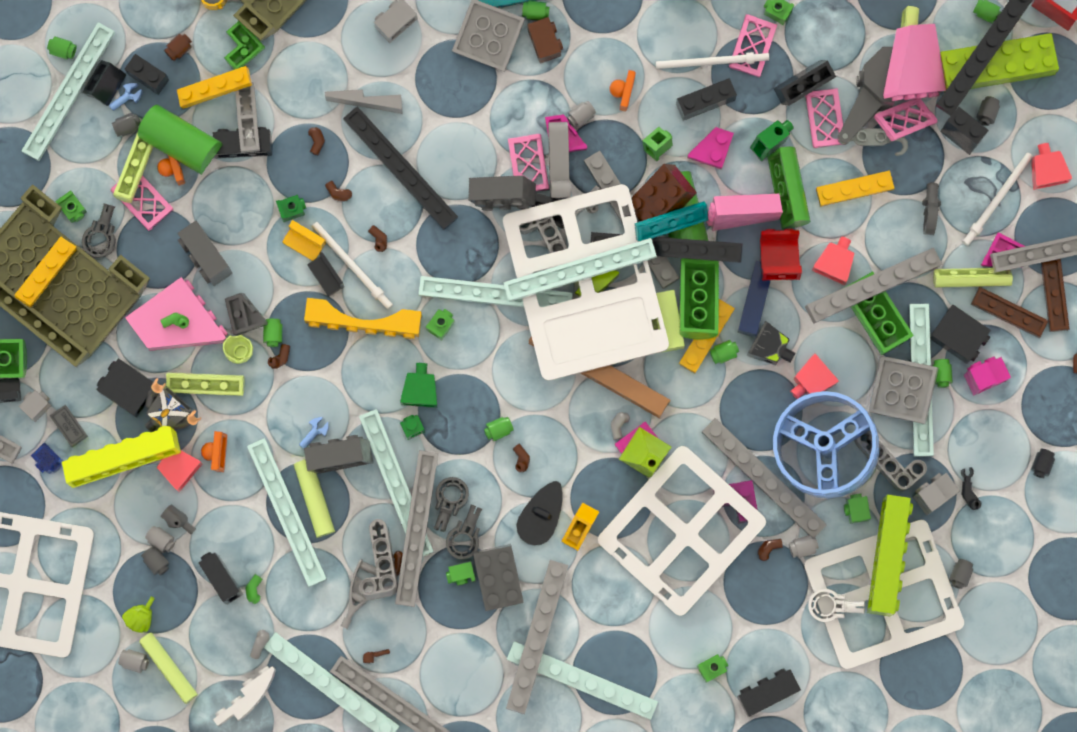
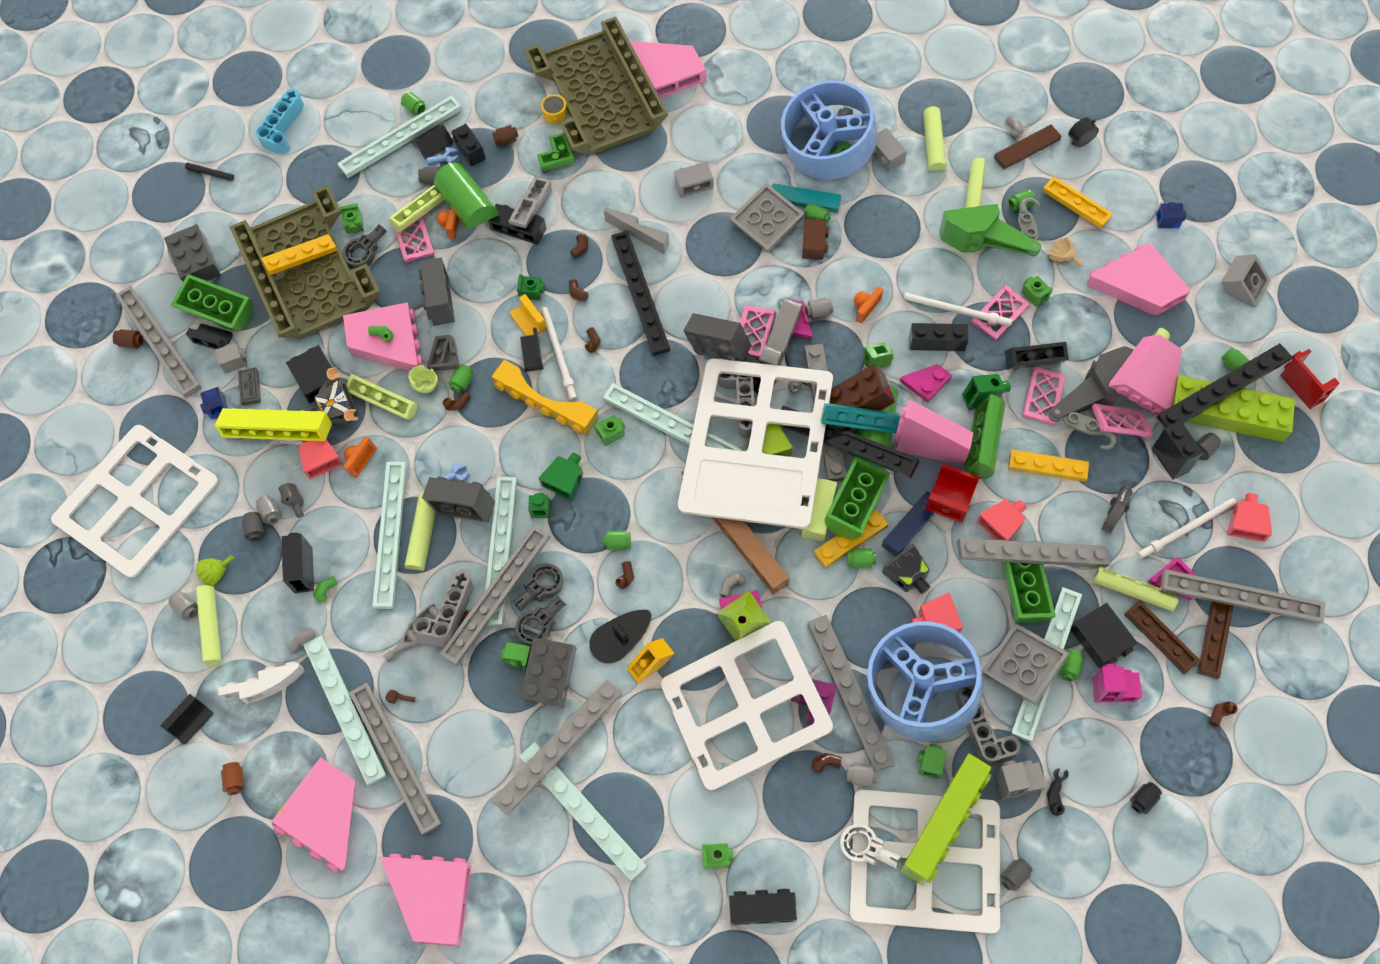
camera: 30 degrees right, 15 degrees down
(214, 87) = (517, 173): yellow plate -> none
(580, 269) = (756, 426): light aqua plate -> none

